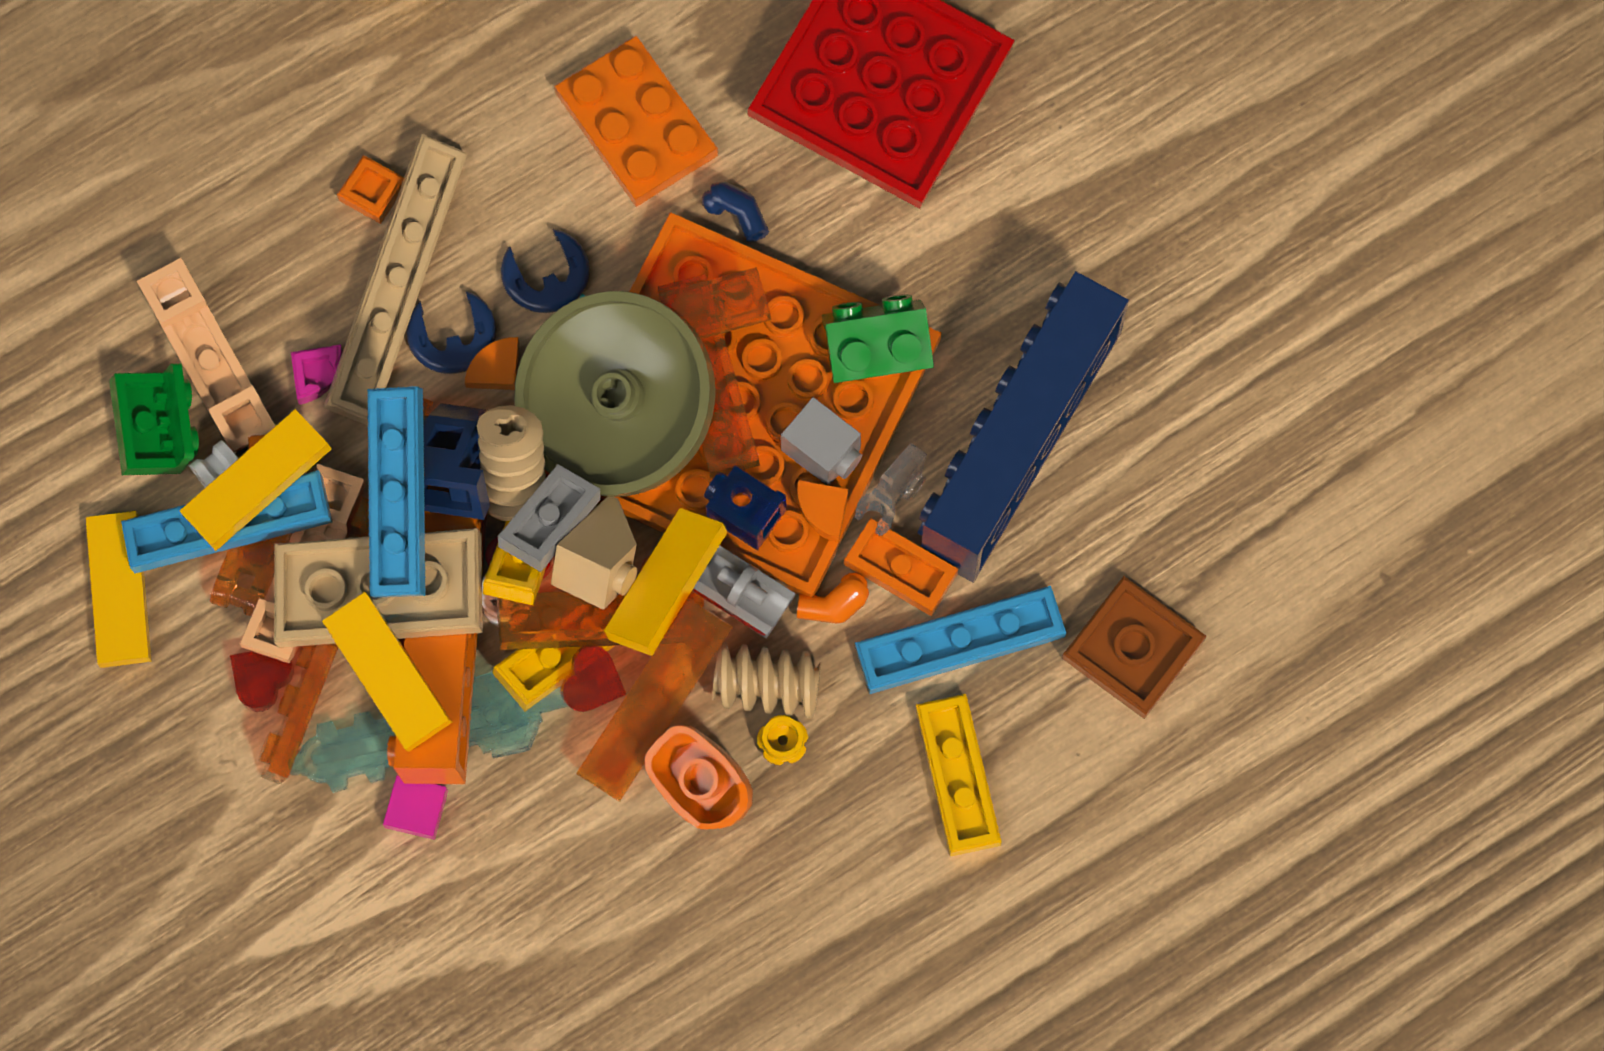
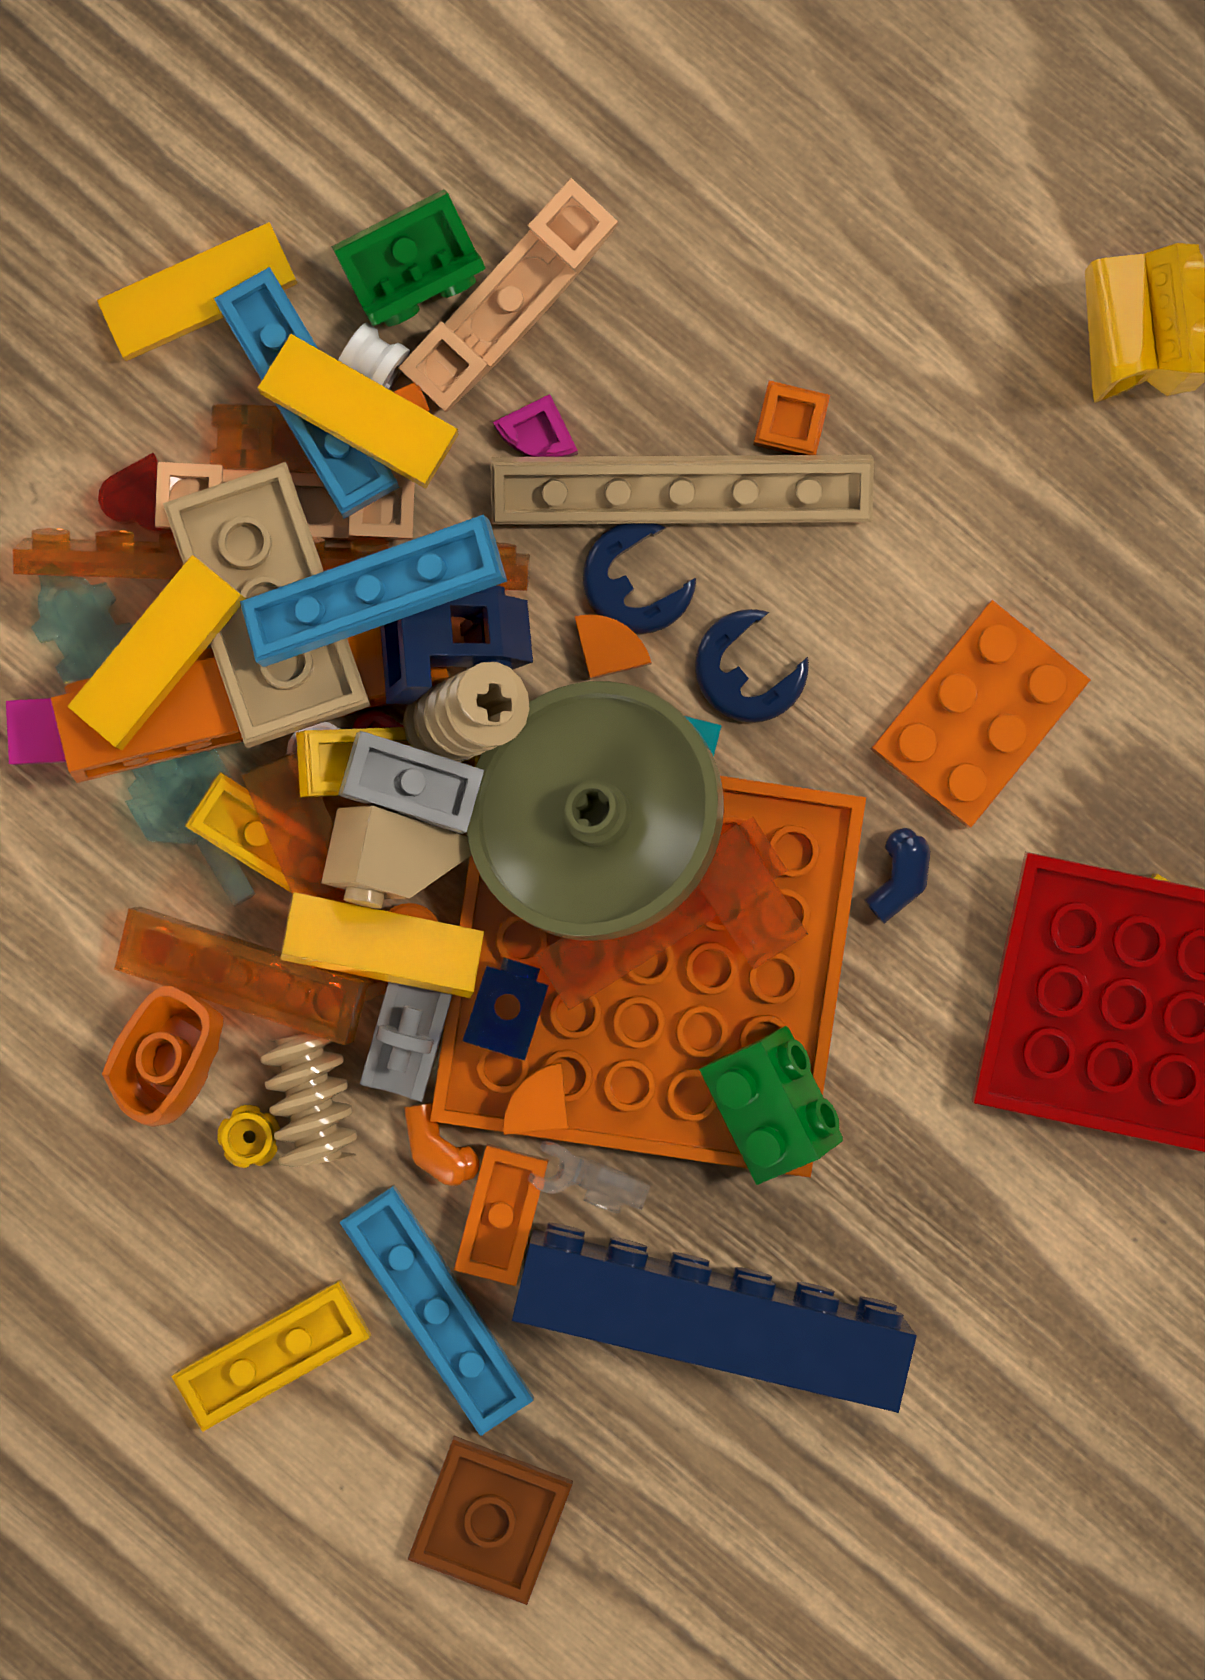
camera: 75 degrees right, 15 degrees up
(592, 680) = (239, 892): clear red tile -> none
(822, 443) = (614, 1081): light grey brick -> none

